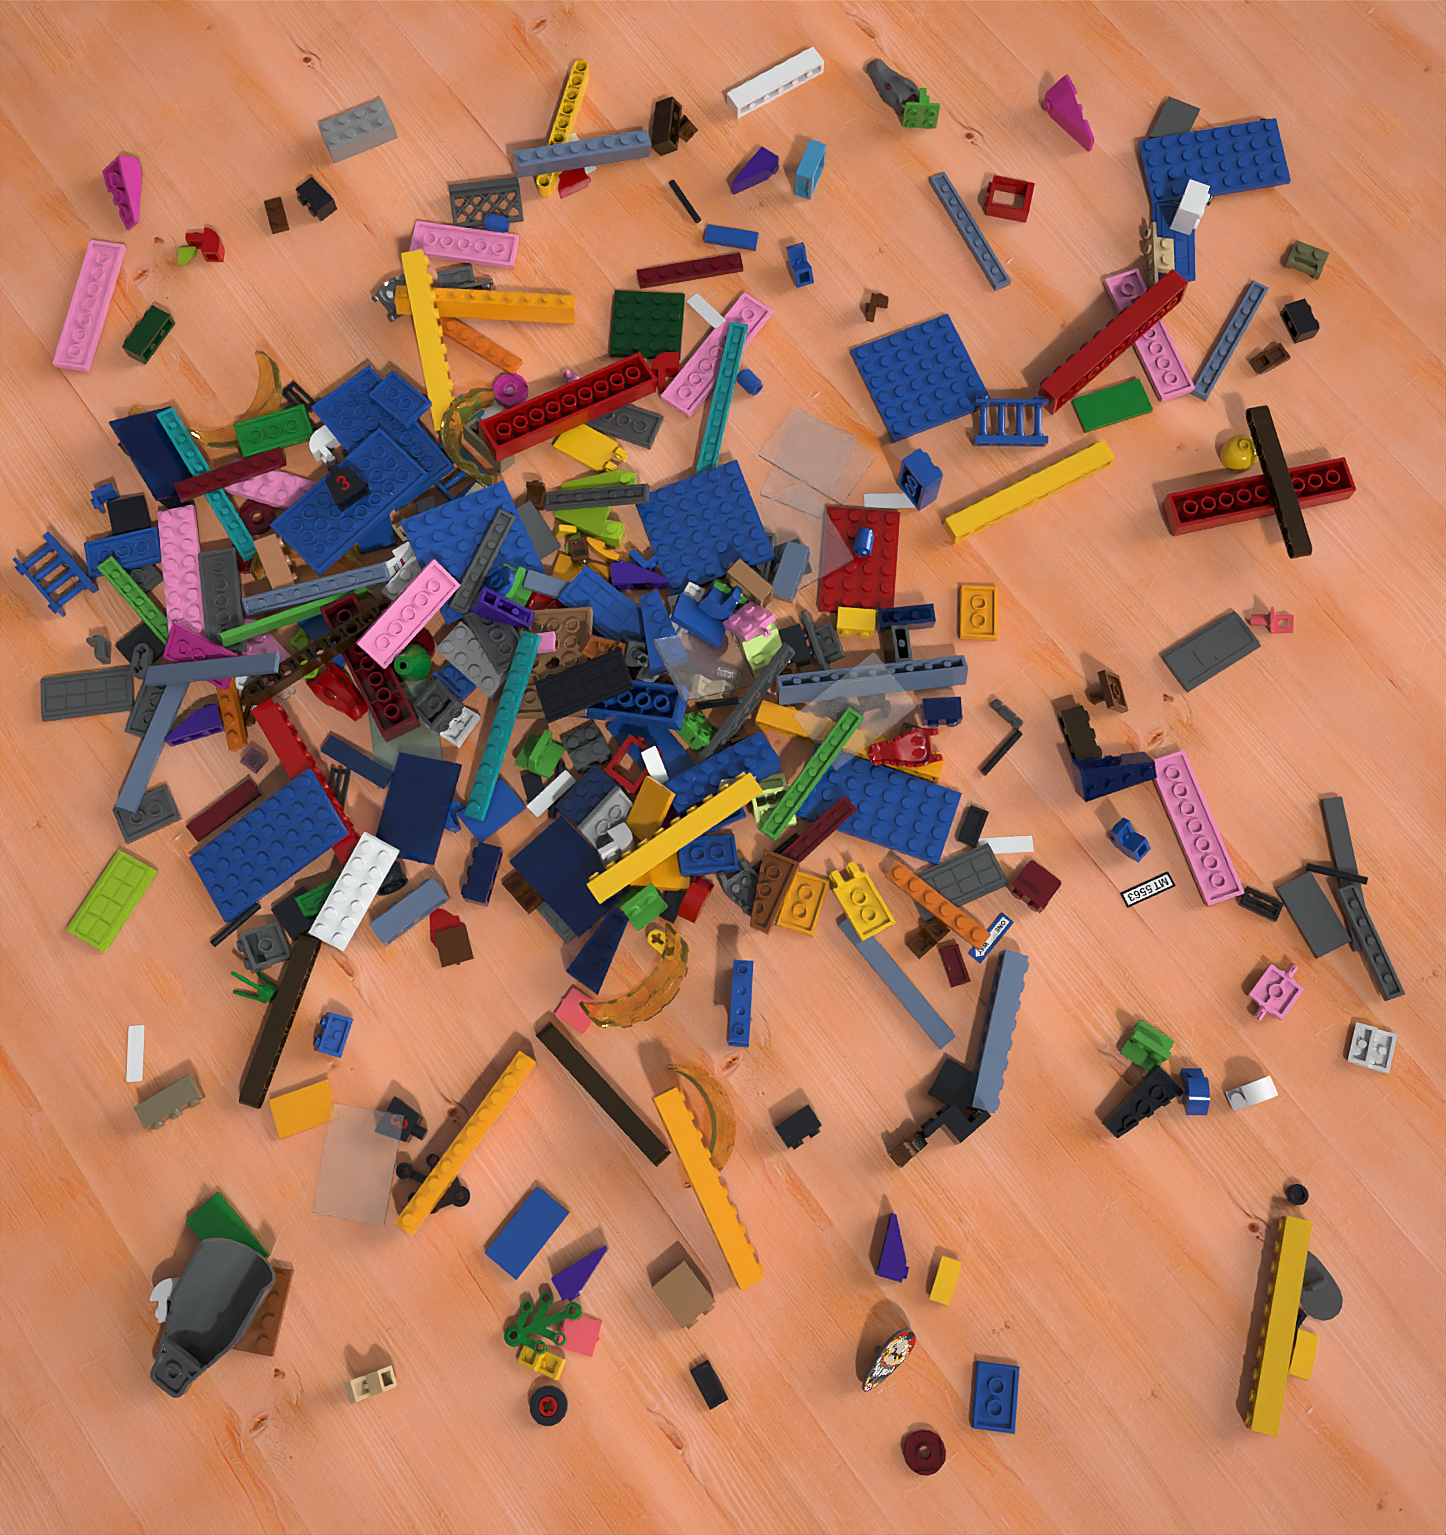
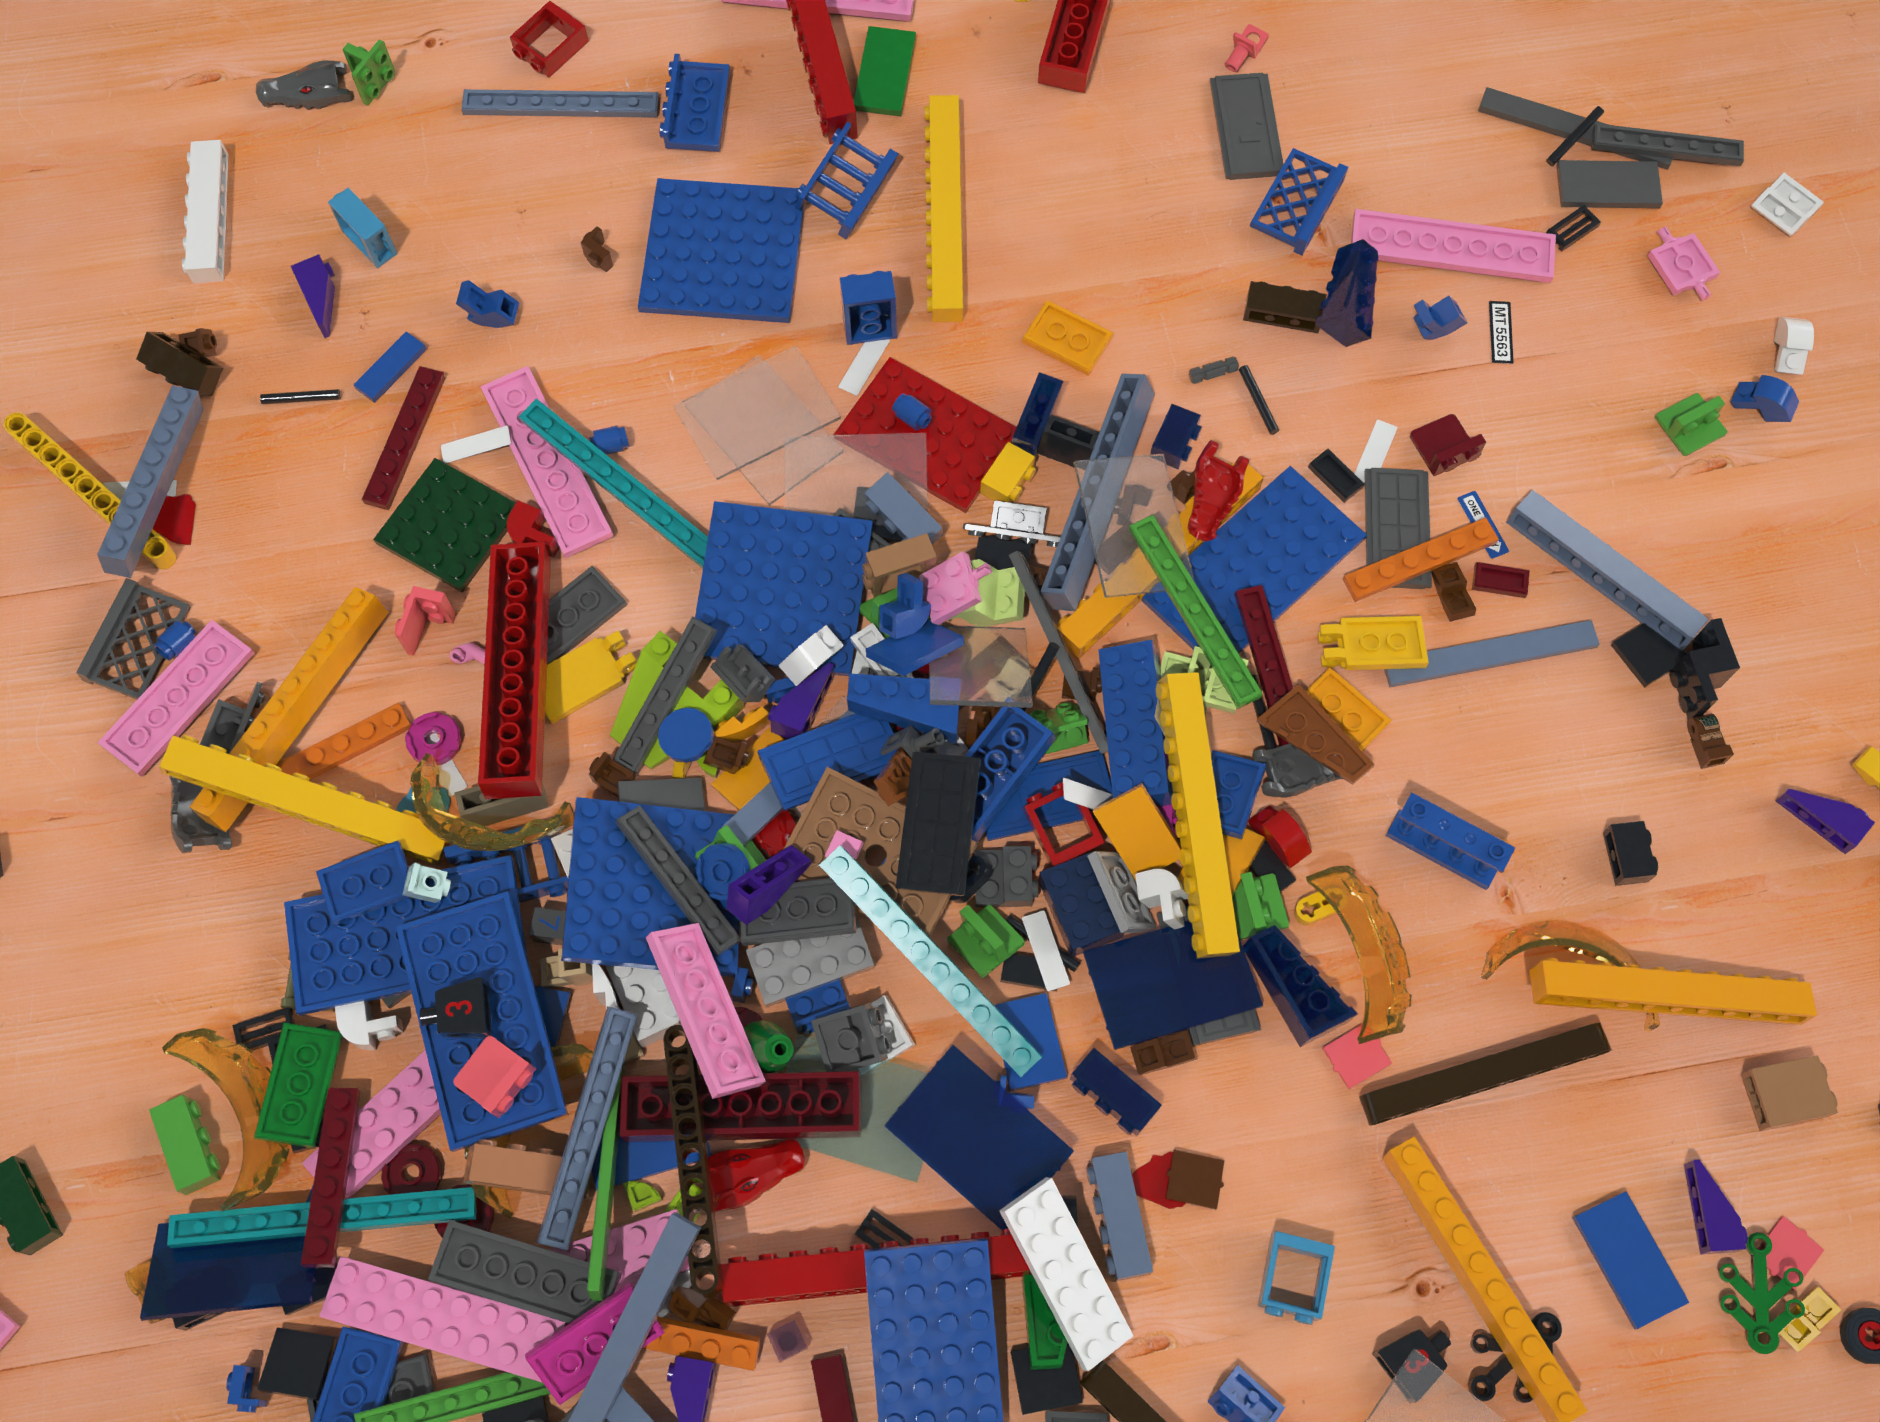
camera: 65 degrees left, 5 degrees down
(217, 394) = (185, 1144): none -> bright green brick
(317, 524) = (494, 1076): none -> coral bracket
(357, 762) = (865, 1193): dark blue tile -> none
(412, 421) = (417, 888): none -> light aqua brick
(440, 1025) = (1305, 1247): none -> dark azure window
(443, 631) = (742, 985): none -> blue plate
(574, 338) = (418, 607): none -> coral bracket
(576, 727) = (974, 881): none -> black beam
(577, 521) = (685, 735): none -> blue tile
(632, 533) = (743, 673): none -> dark grey hinge
(665, 565) = (811, 655): none -> white brick
(1014, 306) = (694, 105): none -> blue bracket
(1111, 692) = (1248, 246): reddish brown tile -> none
(1148, 1095) = (1751, 453): black wing -> none
(1173, 726) = (1319, 203): none -> blue fence

